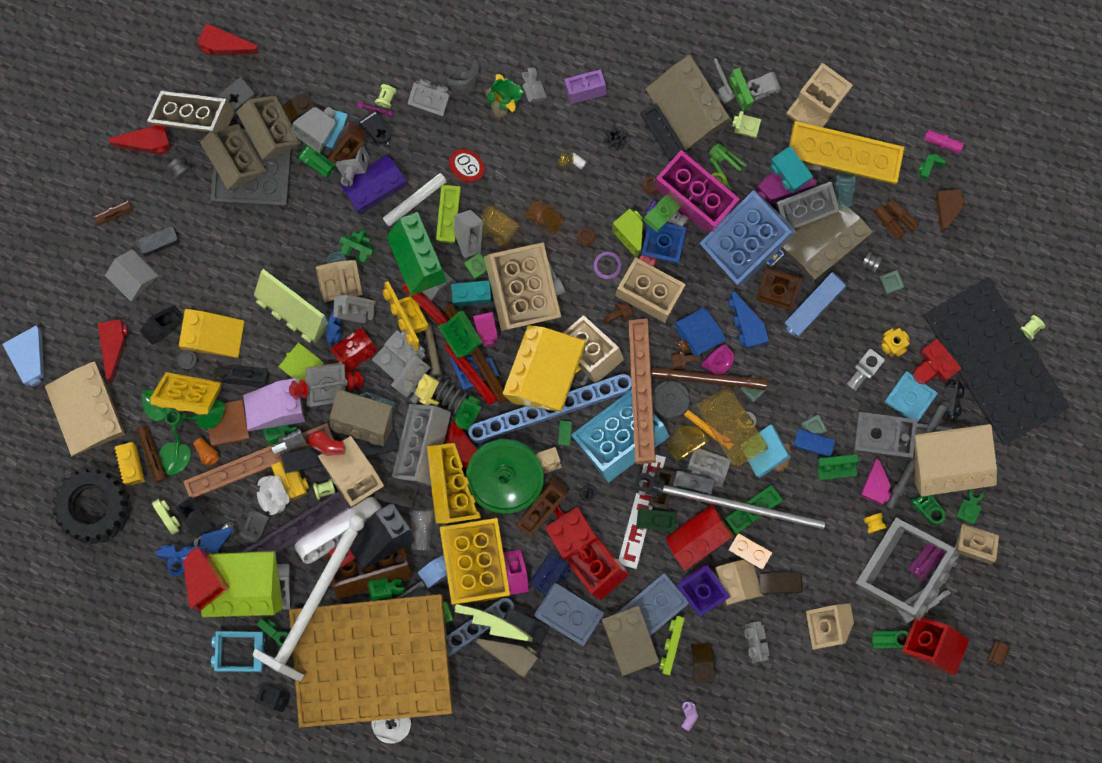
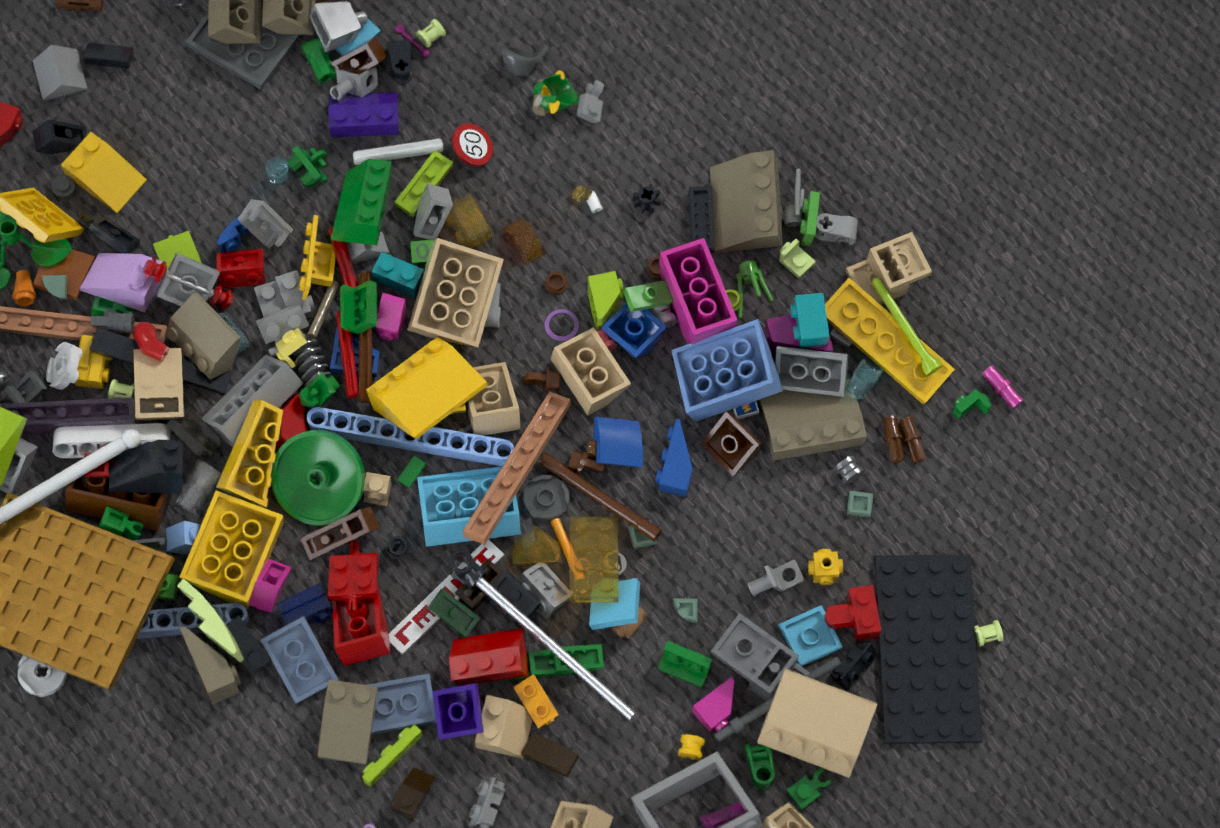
camera: 25 degrees right, 10 degrees down
(229, 438) = (56, 285): none -> sand green tile
(290, 307) = (199, 187): yellowish green slope -> none
(338, 279) = (268, 184): tan slope -> none
(429, 97) = (475, 57): light grey bracket -> none
(585, 86) = (646, 131): medium lavender hinge -> none
(719, 360) = (622, 484): dark pink piece -> none
(814, 443) = (674, 626): blue slope -> none
(815, 304) = (762, 480): medium blue slope -> none
(886, 153) = (929, 363): none -> lime piece
(949, 206) = (969, 457): reddish brown slope -> none

